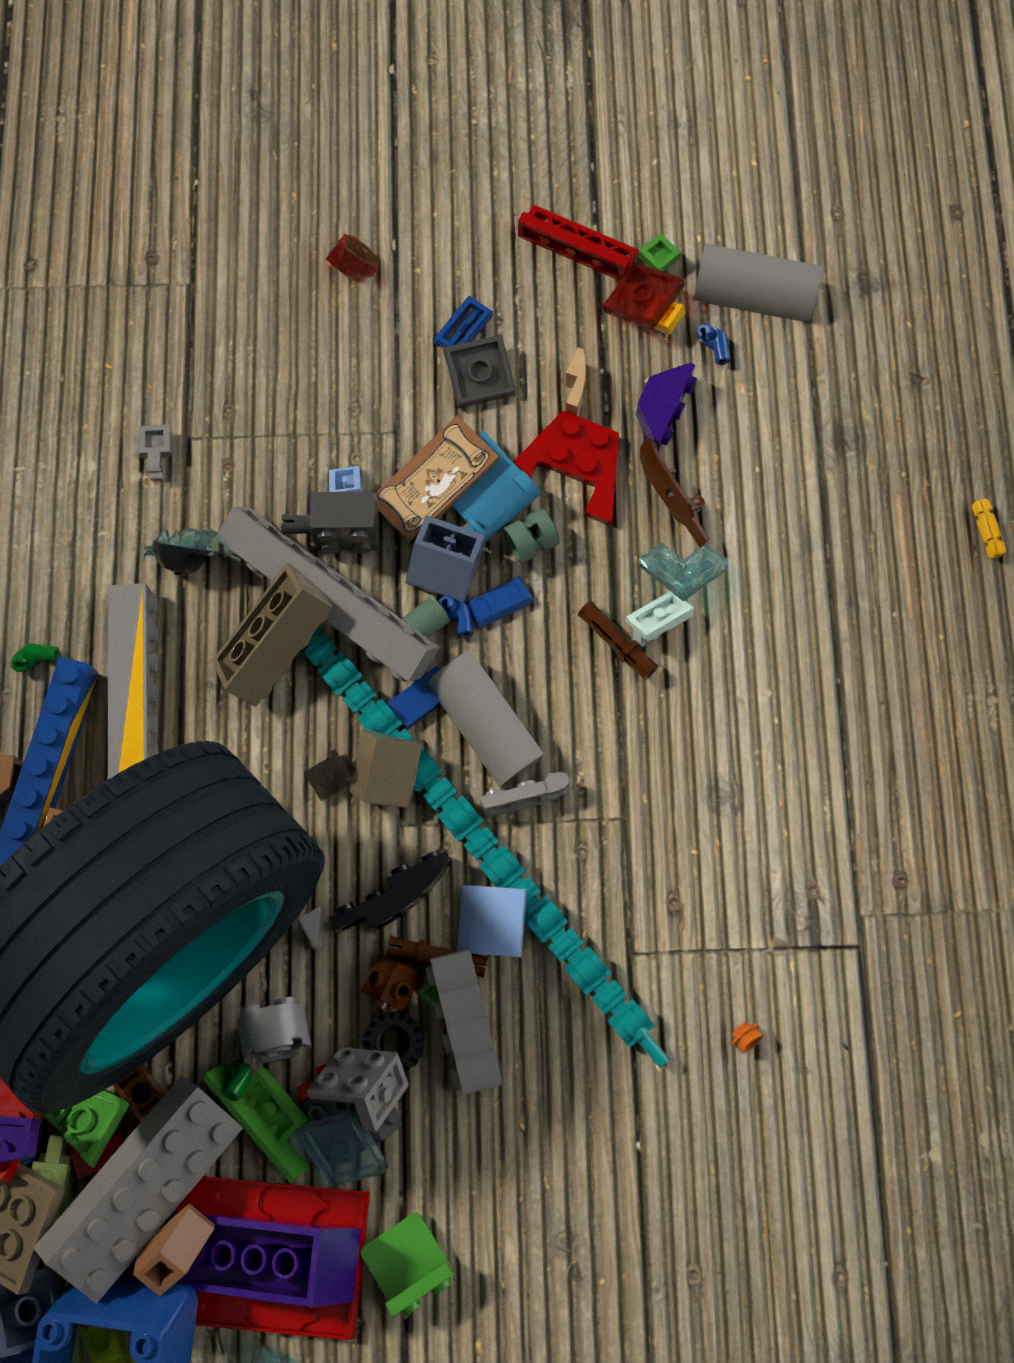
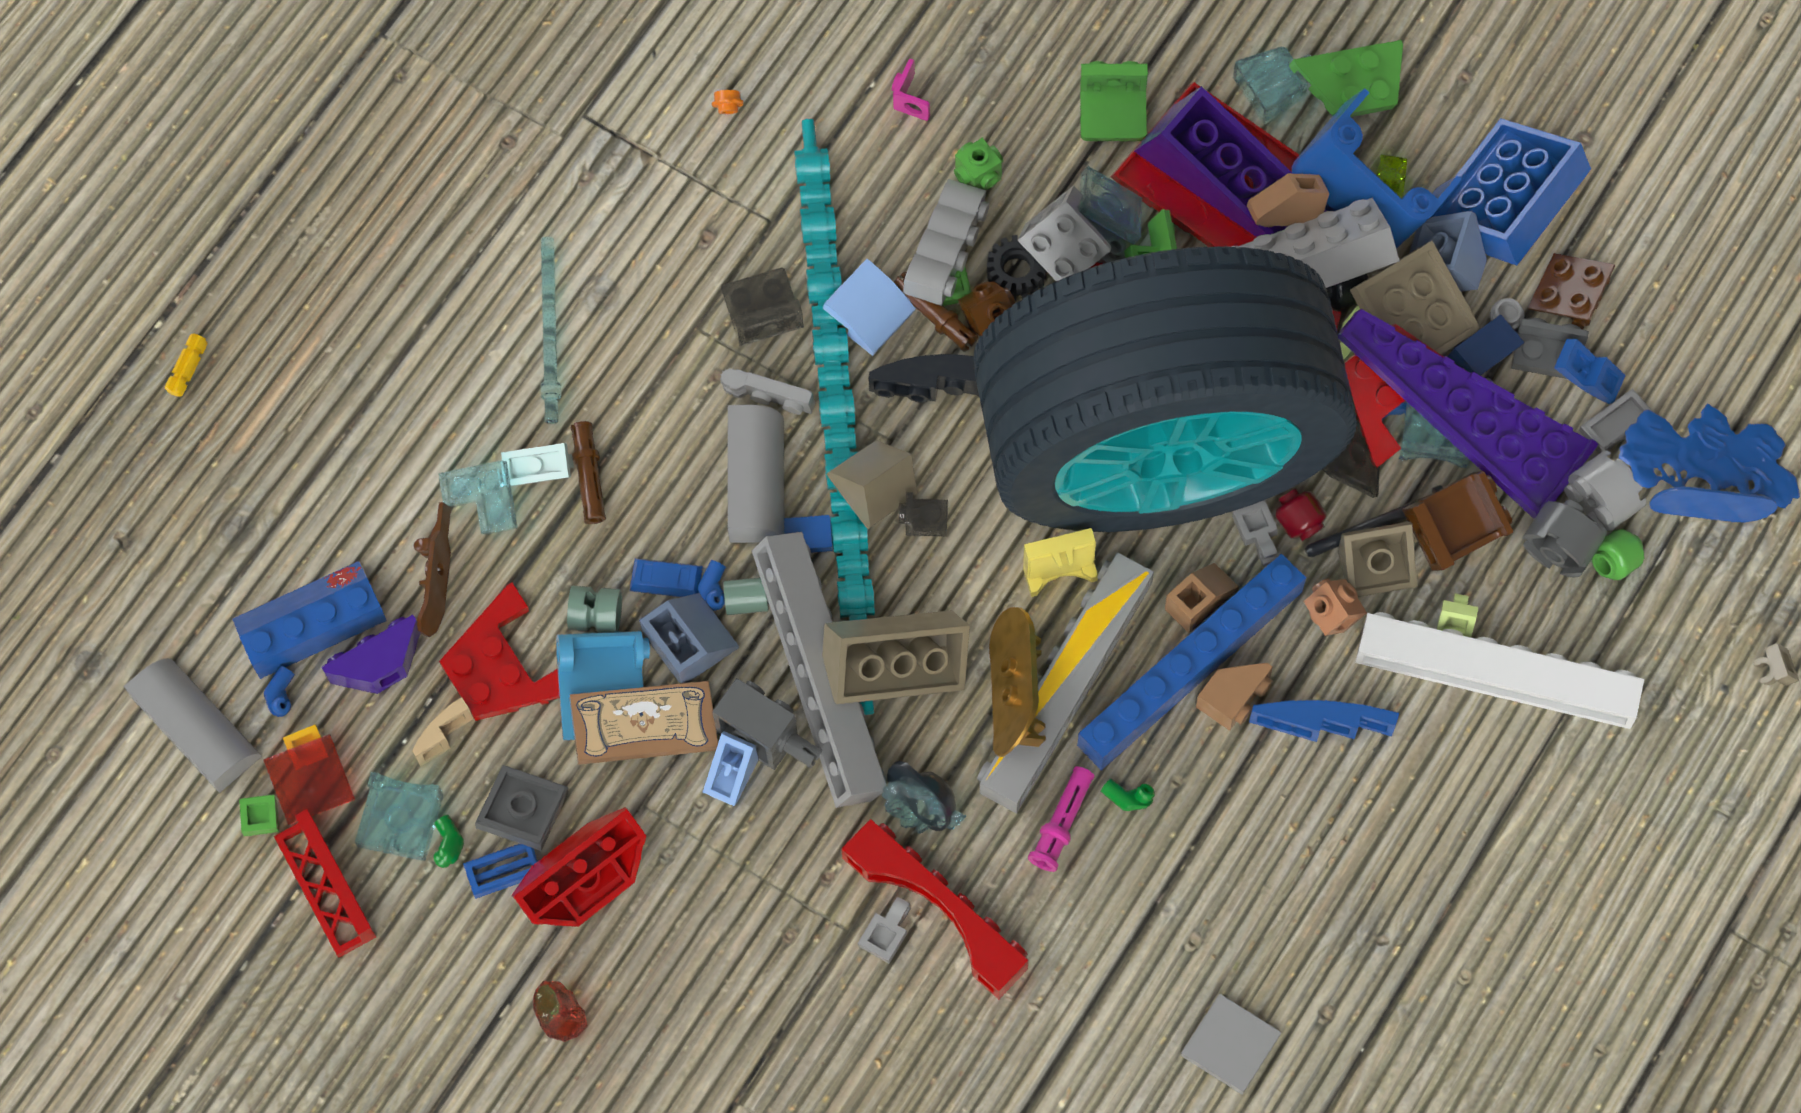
camera: 145 degrees left, 5 degrees down
(71, 592) = (1058, 835): none -> dark pink pin
(162, 669) = (1014, 682): none -> pearl gold piece
(189, 492) = (883, 860): none -> red arch
(404, 345) = (583, 872): none -> red wedge
(499, 1122) = (978, 164): none -> bright green brick
(511, 320) = (451, 844): none -> green arm
(562, 314) = (399, 817): none -> clear light blue piece
(582, 866) = (762, 306): none -> clear smoke bracket
(608, 1151) = (900, 98): none -> dark pink bracket
(699, 689) = (550, 387): none -> clear light blue bar
(738, 402) = (309, 620): none -> blue slope

